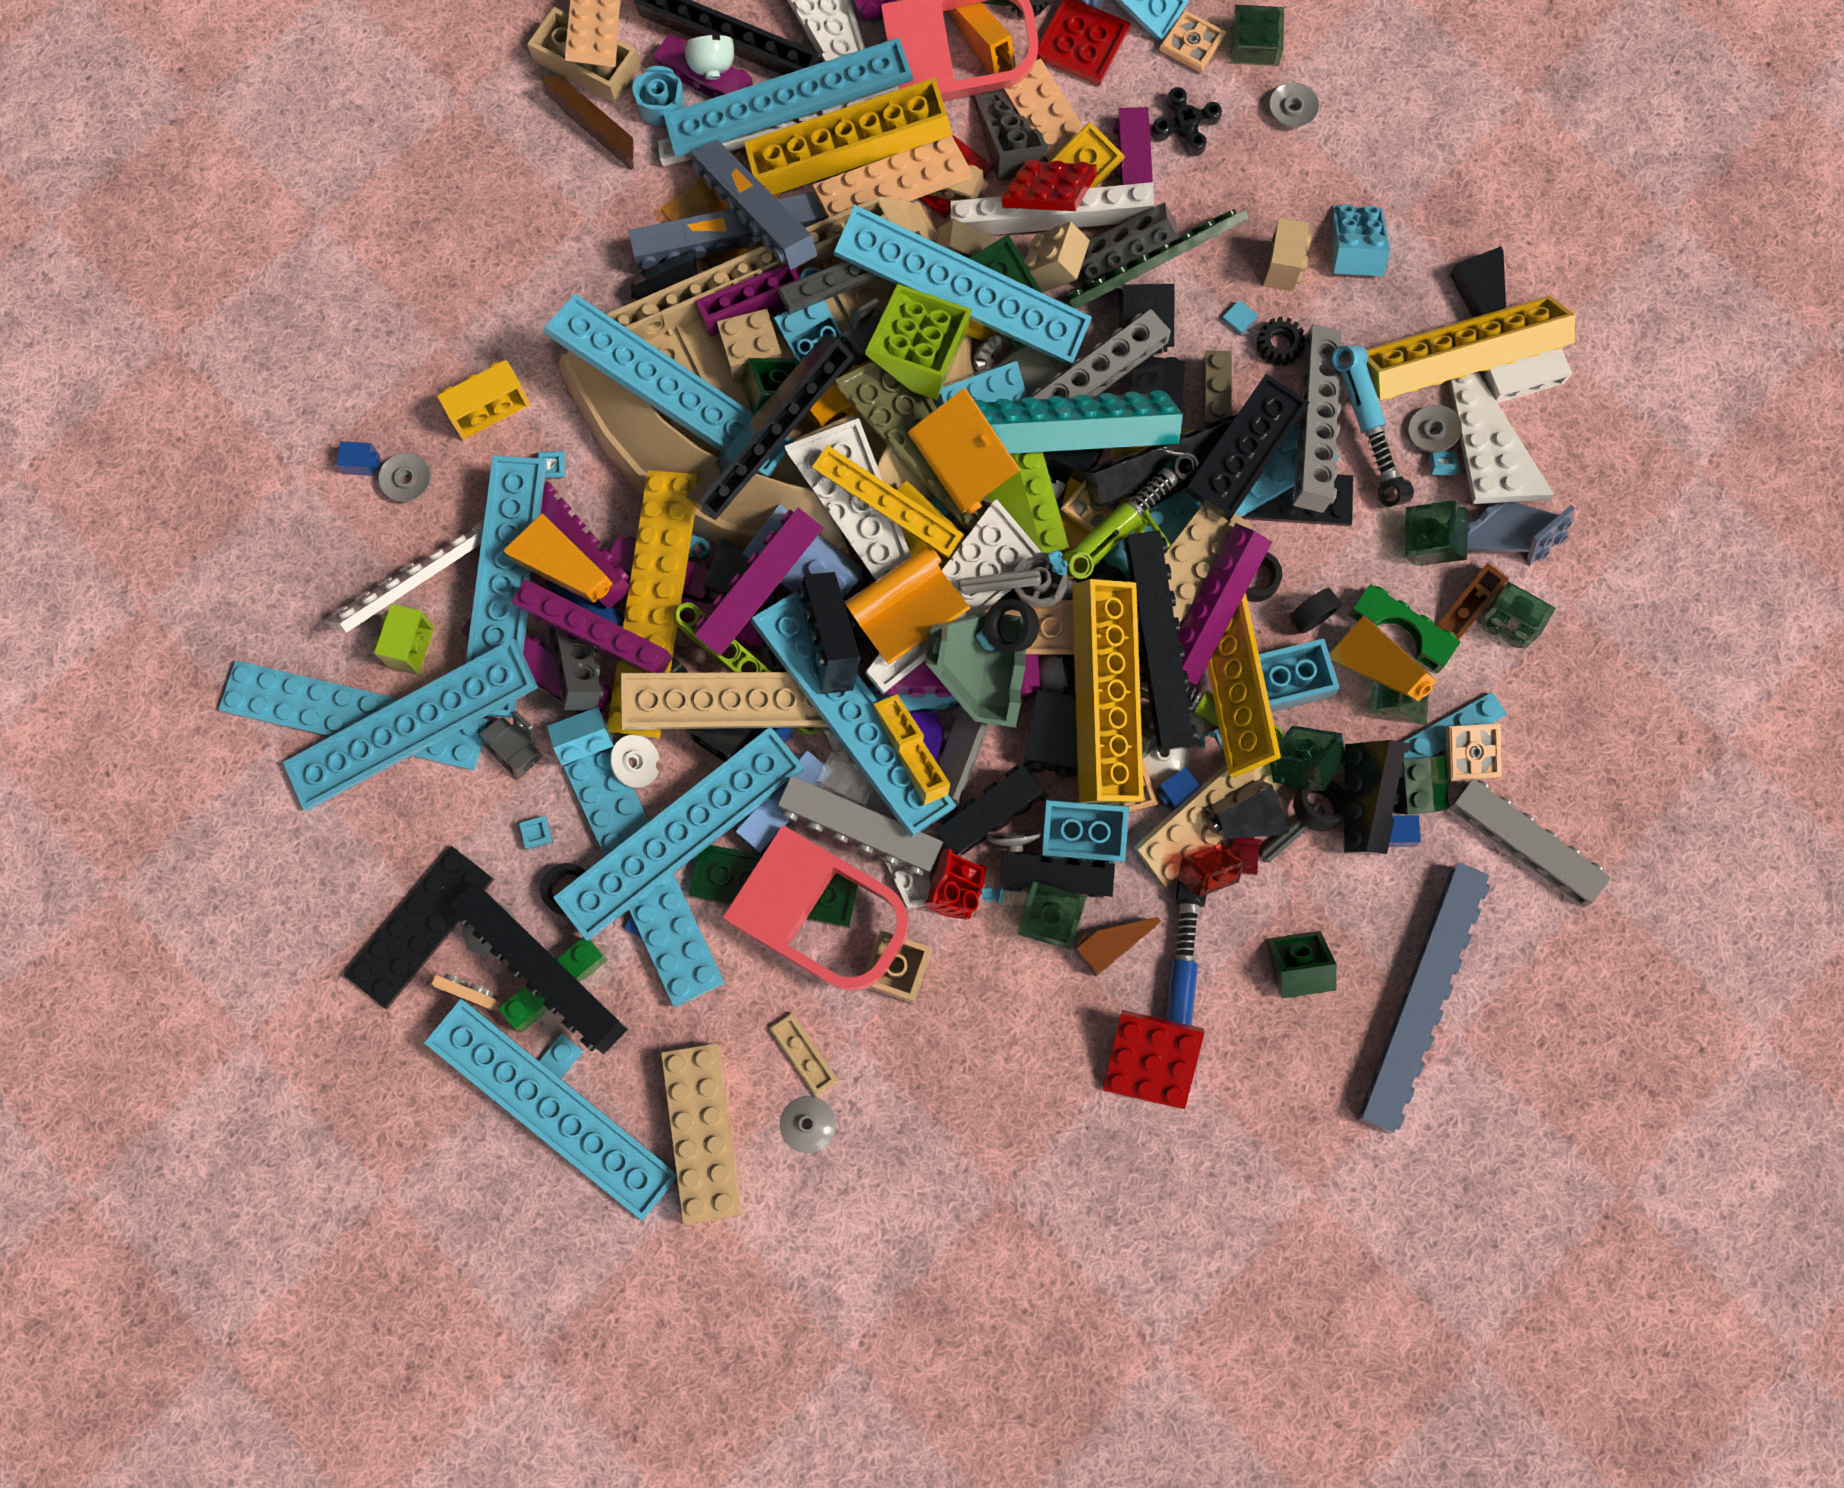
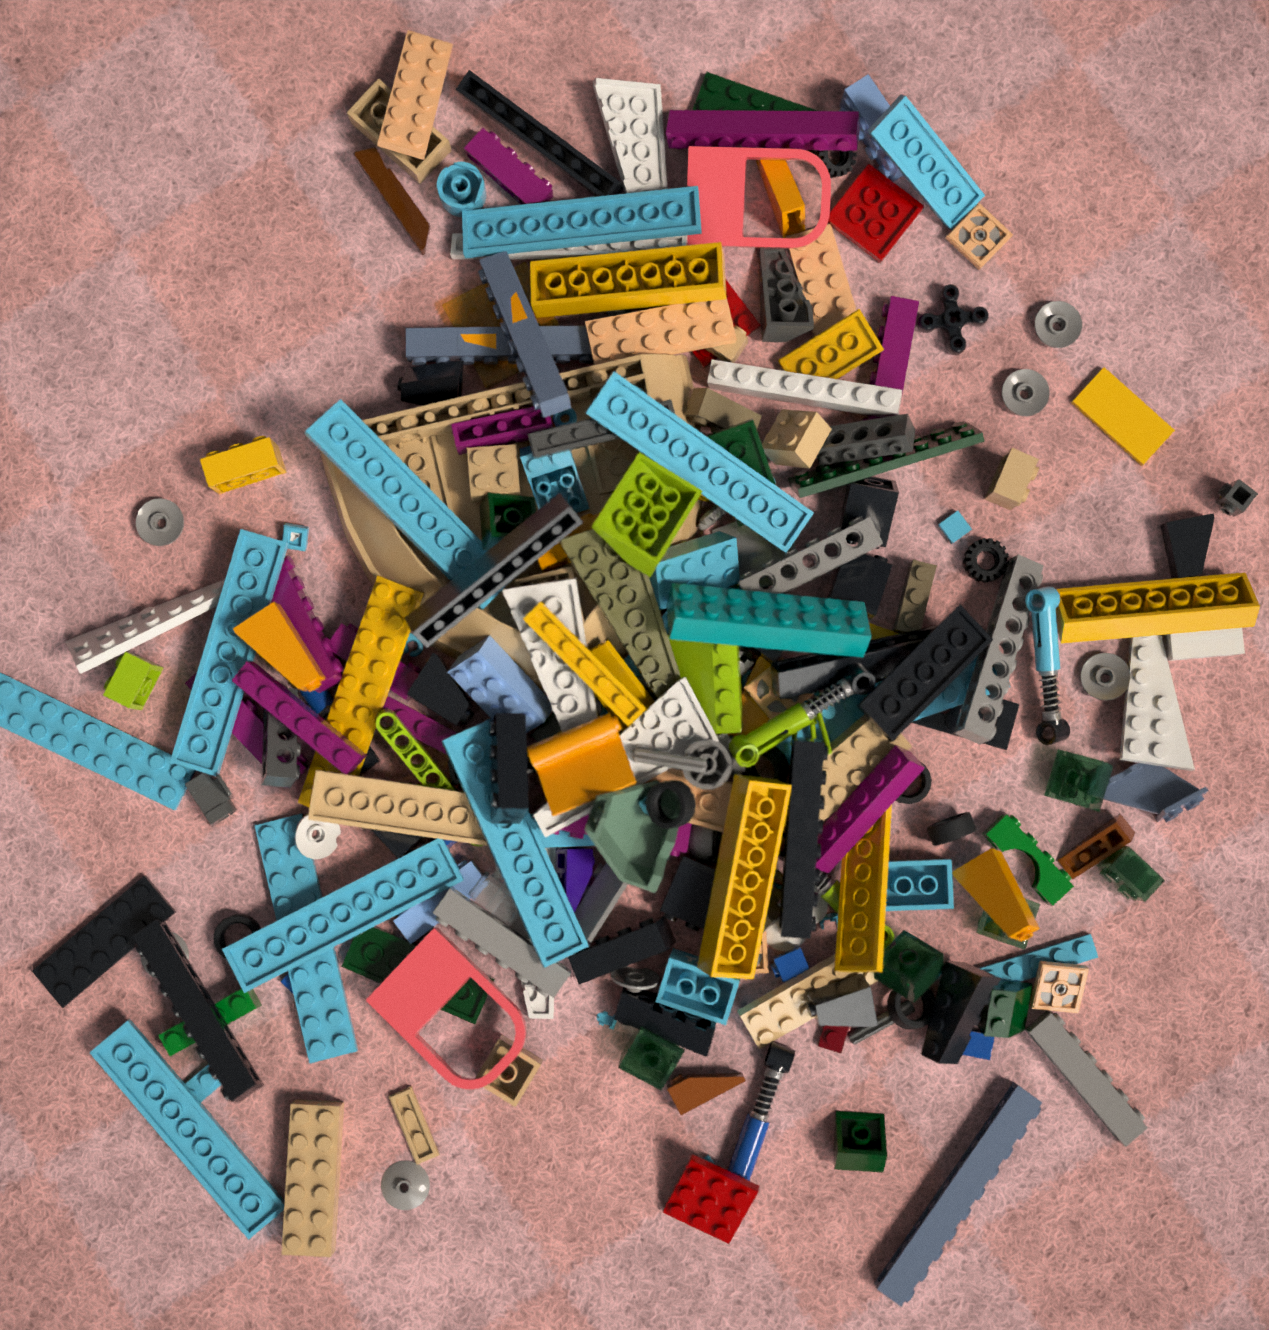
camera: 10 degrees right, 10 degrees up
(357, 458) = (120, 495): blue brick -> none
(410, 724) = (125, 764): medium azure plate -> none
(459, 988) = (132, 1014): light nougat piece -> none
(536, 832) = (219, 880): medium azure plate -> none
(580, 736) = (272, 809): medium azure slope -> none
(709, 56) = (515, 166): light aqua cylinder -> none
(758, 581) = (454, 711): magenta brick -> none
(861, 331) = (598, 489): dark grey piece -> none
(909, 745) = (559, 888): yellow slope -> none
(955, 886) = (576, 1009): red slope -> none
(963, 451) = (662, 635): light orange door -> none
(1049, 185) = (805, 370): red plate -> none
(1058, 564) = (725, 758): medium azure piece -> none
(1210, 869) = (799, 1045): clear red brick -> none
(1257, 35) = (1041, 245): clear green brick -> none
(1280, 165) = (1033, 384): none -> light grey dish
(1359, 240) = (1084, 474): medium azure slope -> none
(1382, 179) = (1123, 416): none -> yellow tile
(1444, 463) = (1105, 711): medium azure tile -> none
(1518, 228) = (1235, 497): none -> dark grey brick

